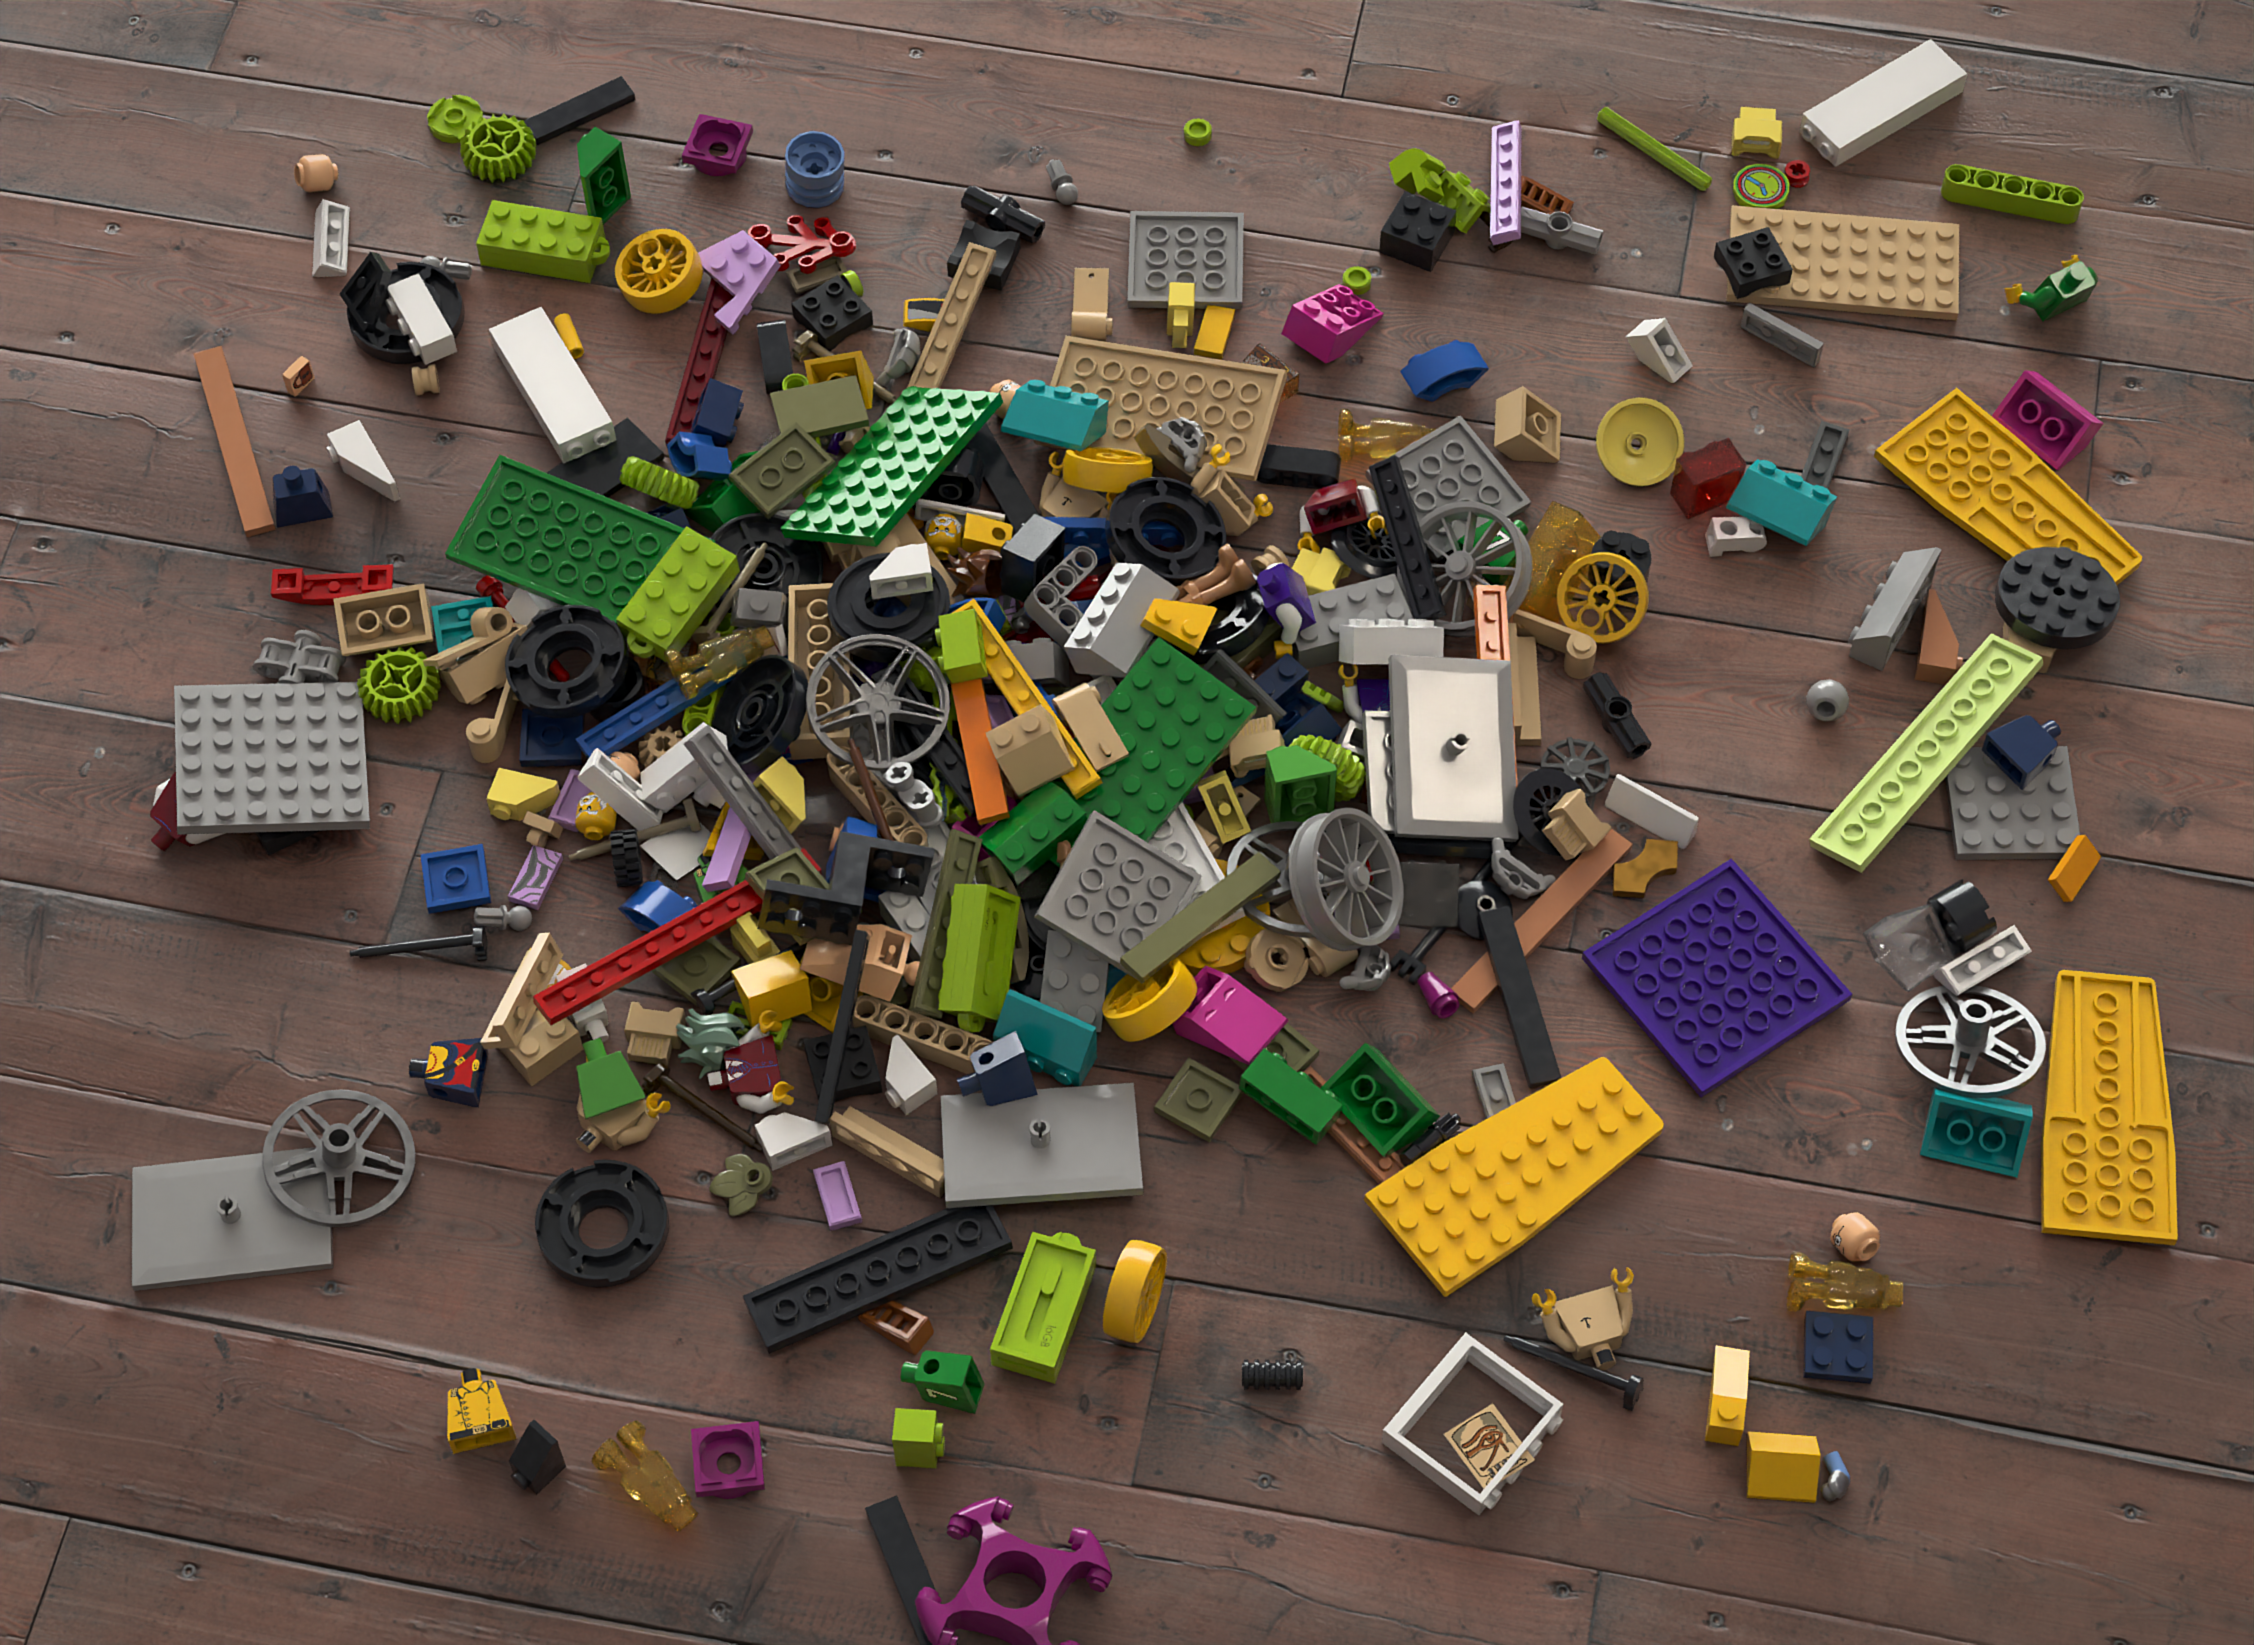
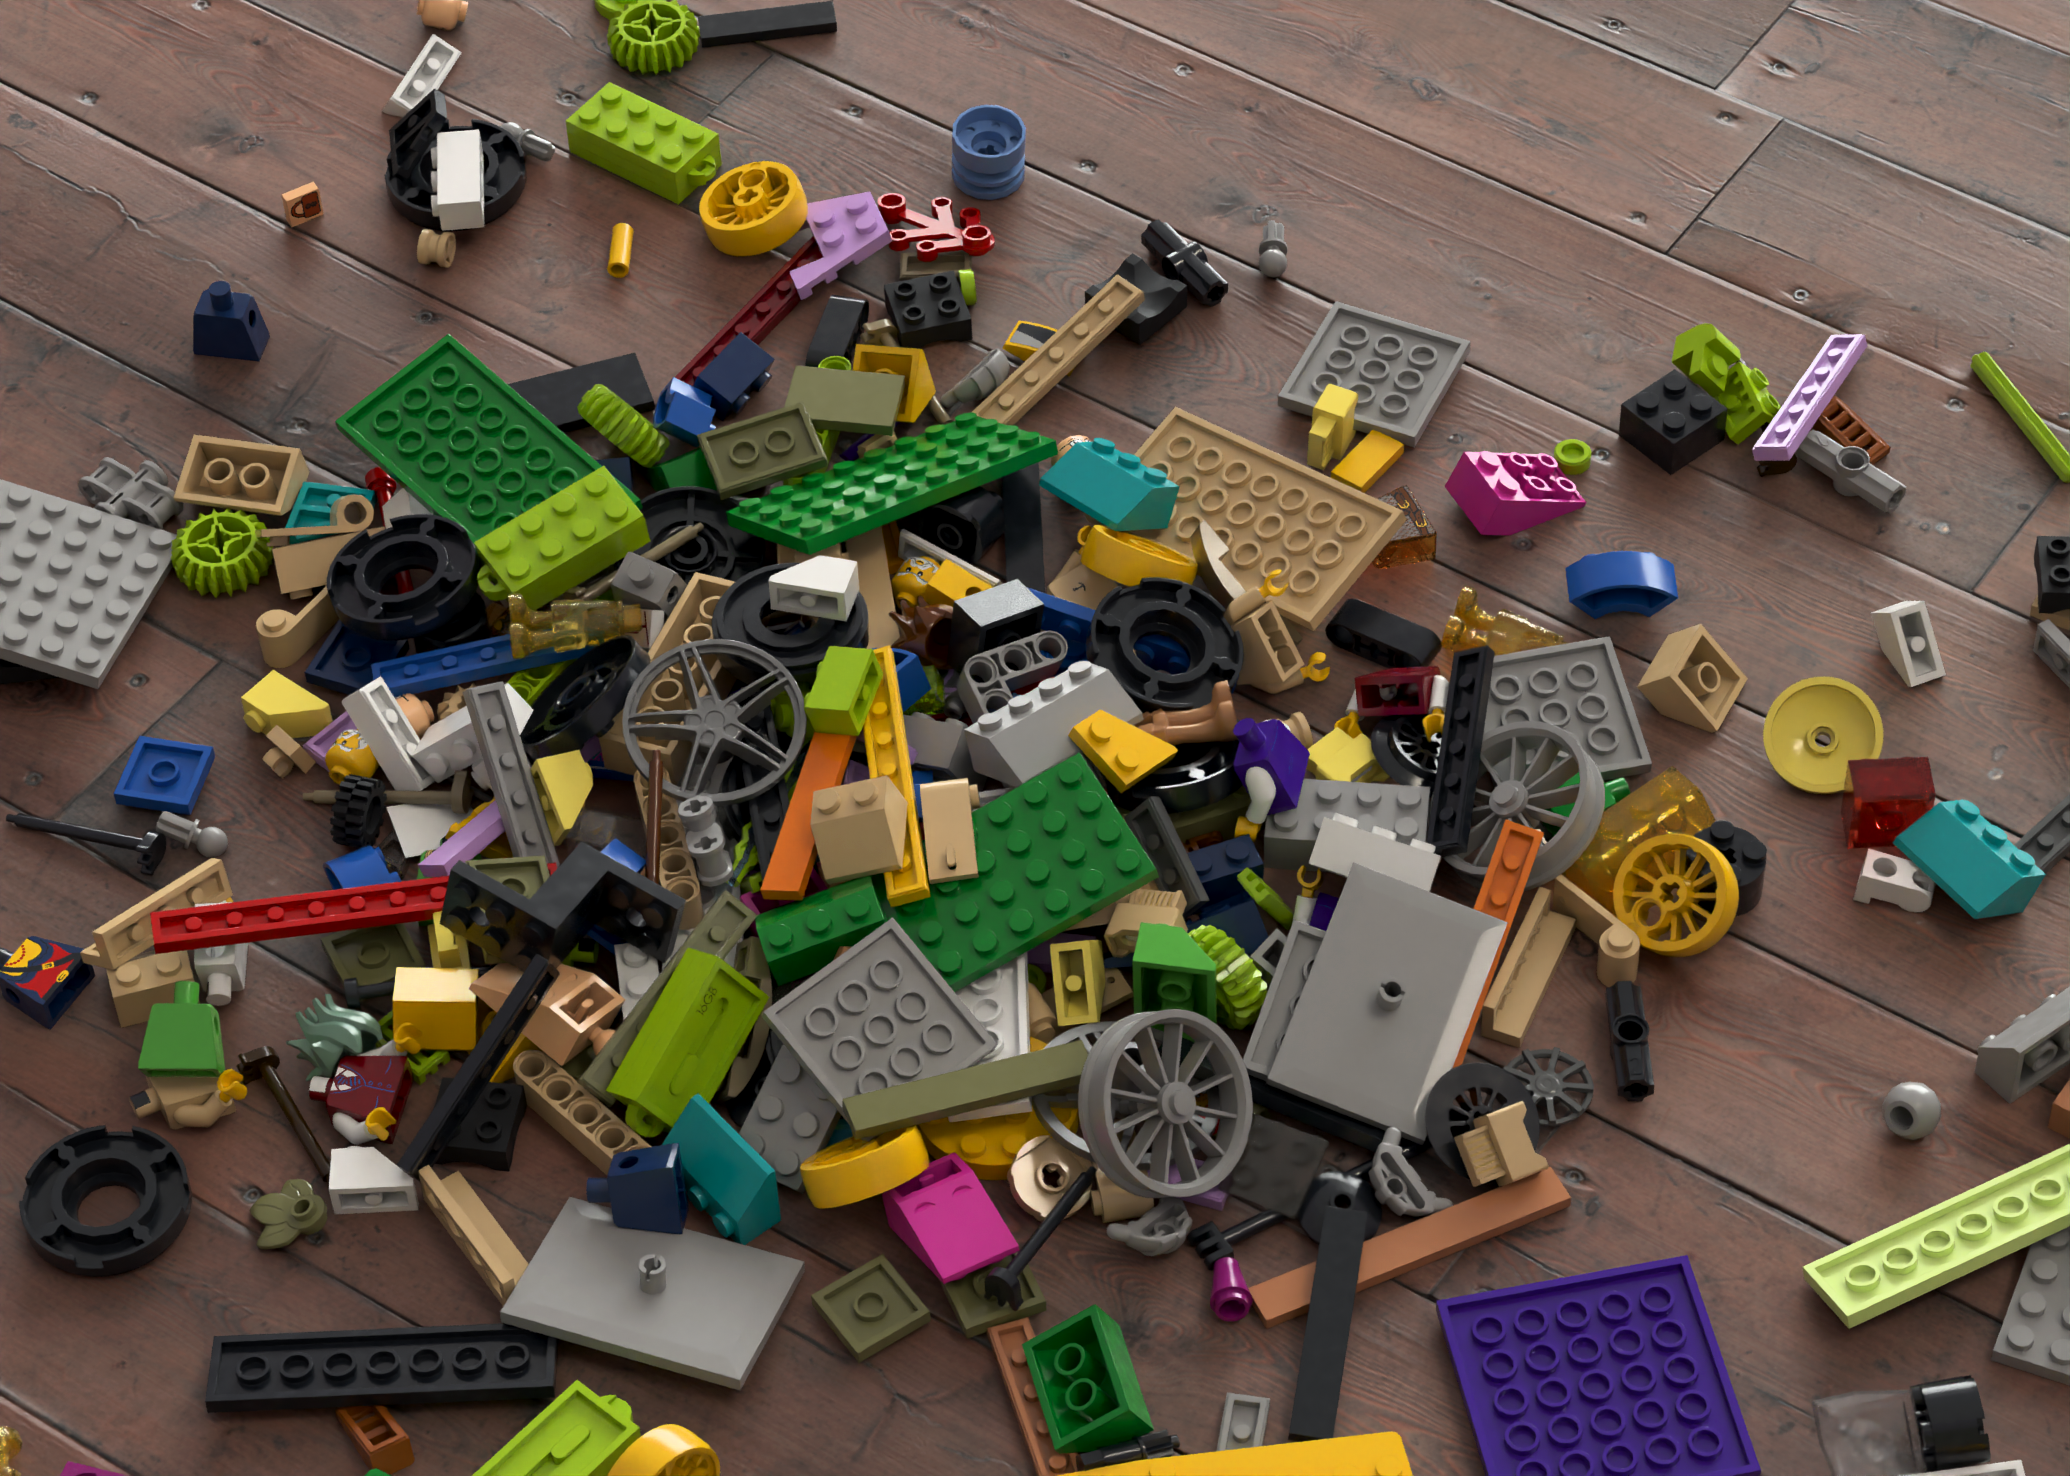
camera: 25 degrees right, 10 degrees down
(234, 441) = (198, 250): nougat tile -> none
(321, 589) = (175, 419): red slope -> none
(360, 459) = (318, 306): white slope -> none
(535, 877) = (253, 804): lavender tile -> none
(552, 385) = (568, 293): white brick -> none
(602, 174) = (738, 89): green slope -> none
(652, 1033) = (273, 1012): tan piece -> none
(715, 130) = (892, 84): magenta piece -> none
(837, 1195) = (389, 1267): lavender tile -> none
(907, 1079) = (538, 1163): white slope -> none
(1091, 304) = (1234, 389): tan door -> none
(1187, 439) = (1249, 556): light grey piece -> none
(1197, 132) = (1467, 242): lime tile -> none
(1290, 1095) = (977, 1337): green brick -> none
(1291, 1048) = (1003, 1281): none -> black piece
(1651, 811) = (1615, 1168): white slope -> none
(1656, 860) = (1558, 1237): pearl gold tile -> none

